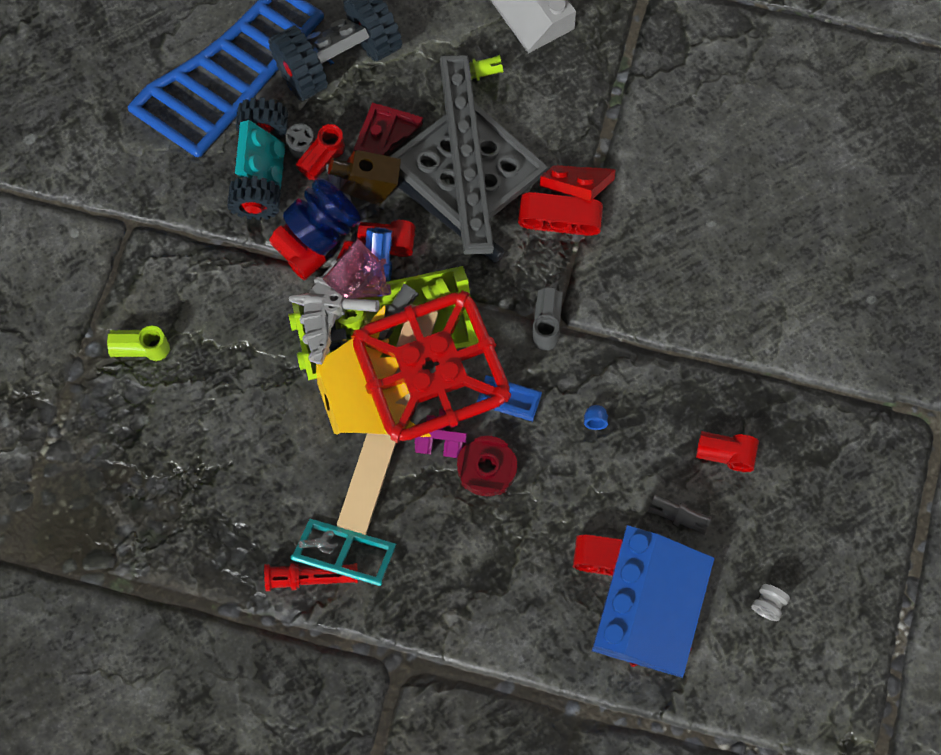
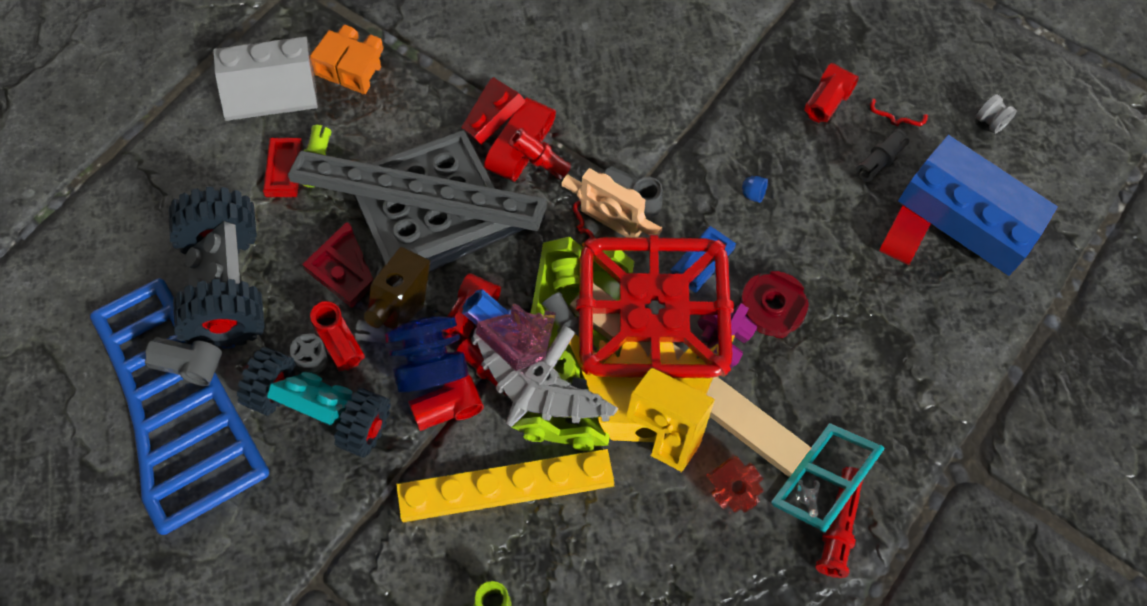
camera: 70 degrees left, 5 degrees down
(250, 321) = (504, 485): none -> yellow plate
(258, 63) = (192, 362): none -> dark grey piece
(306, 481) = (729, 472): none -> clear red brick
(340, 412) = (672, 411): none -> yellow panel
(469, 44) = (280, 159): none -> red tile
(497, 295) = (581, 220): none -> red piece
(519, 305) = (611, 204): none -> light nougat plate
(545, 232) = (540, 154): none -> red pin
(576, 52) = (346, 60): none -> orange hips
(728, 520) = (898, 121): none -> red piece

